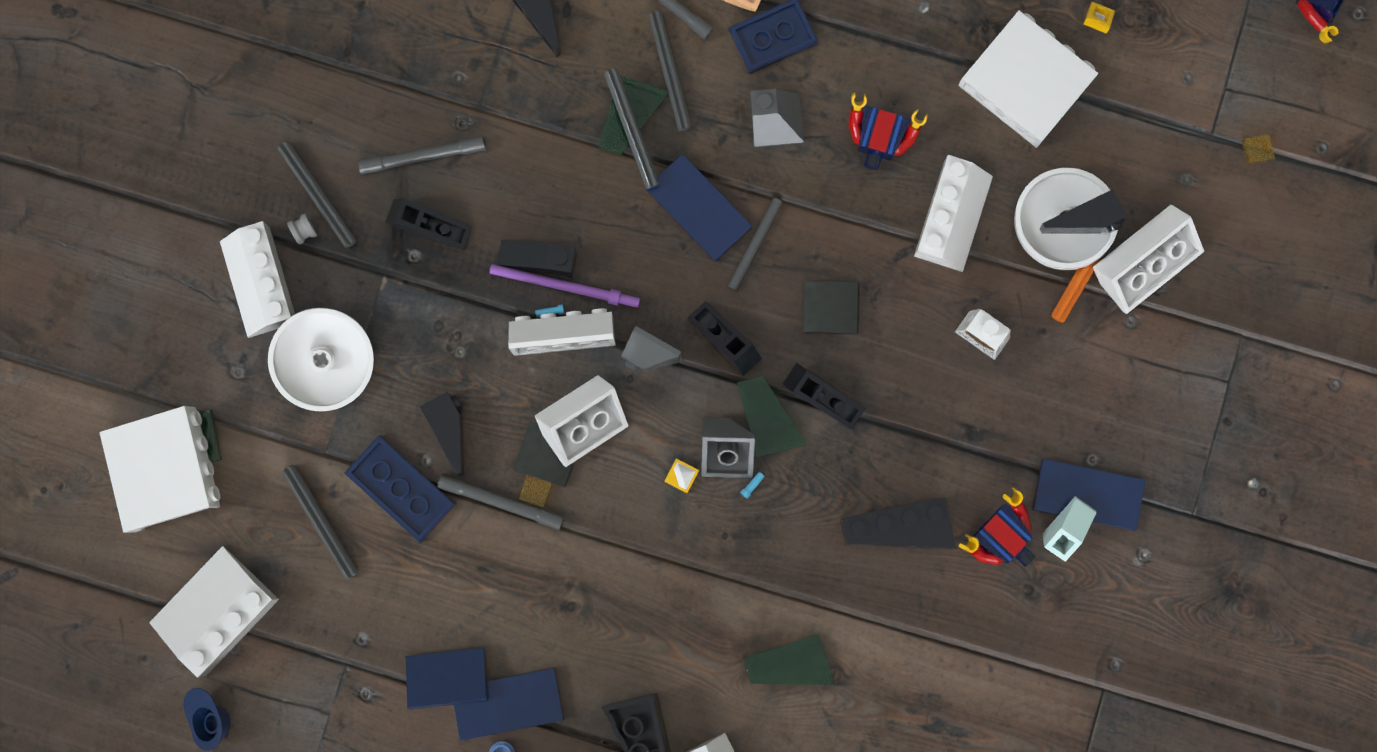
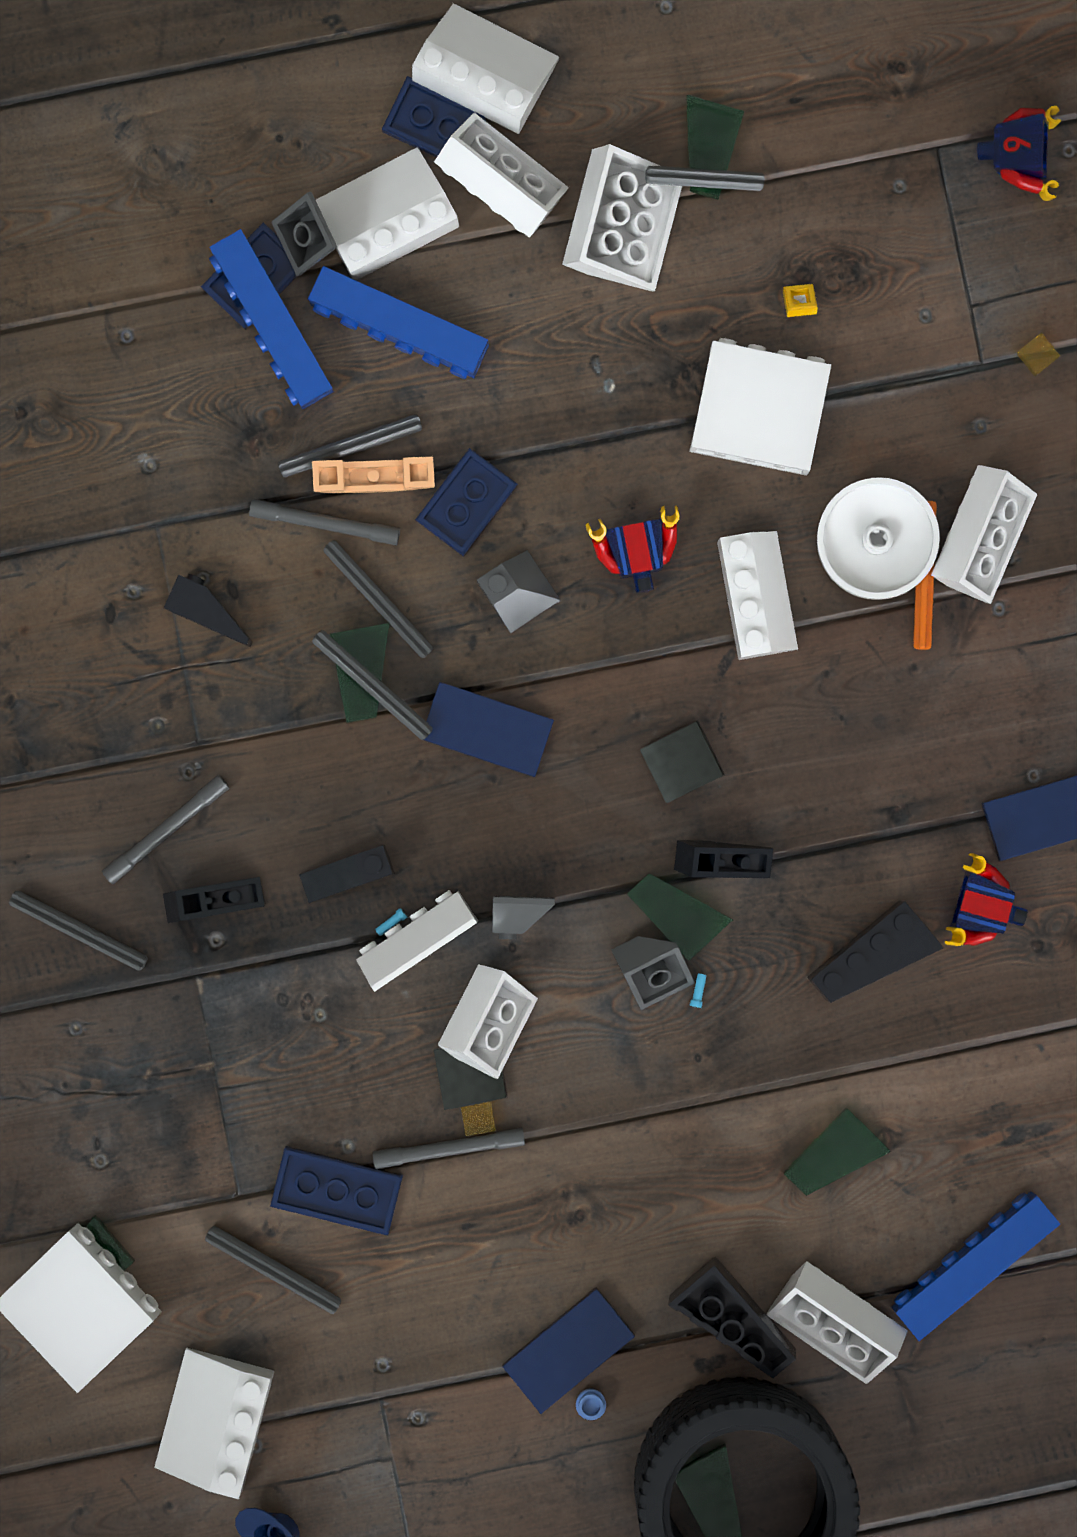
camera: 30 degrees left, 5 degrees up
(257, 278) = (67, 1054): white slope -> none
(302, 229) = (83, 976): light grey wheel -> none
(320, 359) = (181, 1103): white dish -> none
(446, 678) = (492, 1359): dark blue tile -> none
(447, 424) = (349, 1100): black slope -> none
(613, 296) = (449, 872): medium lavender bar -> none
(681, 476) = (620, 1020): tile -> none
(725, 338) = (588, 853): black slope -> none
(754, 244) = (566, 736): dark grey bar -> none
(984, 332) = (853, 704): white torso -> none
(1069, 529) = (1047, 864): light aqua slope -> none
(1089, 218) = (908, 523): black slope -> none

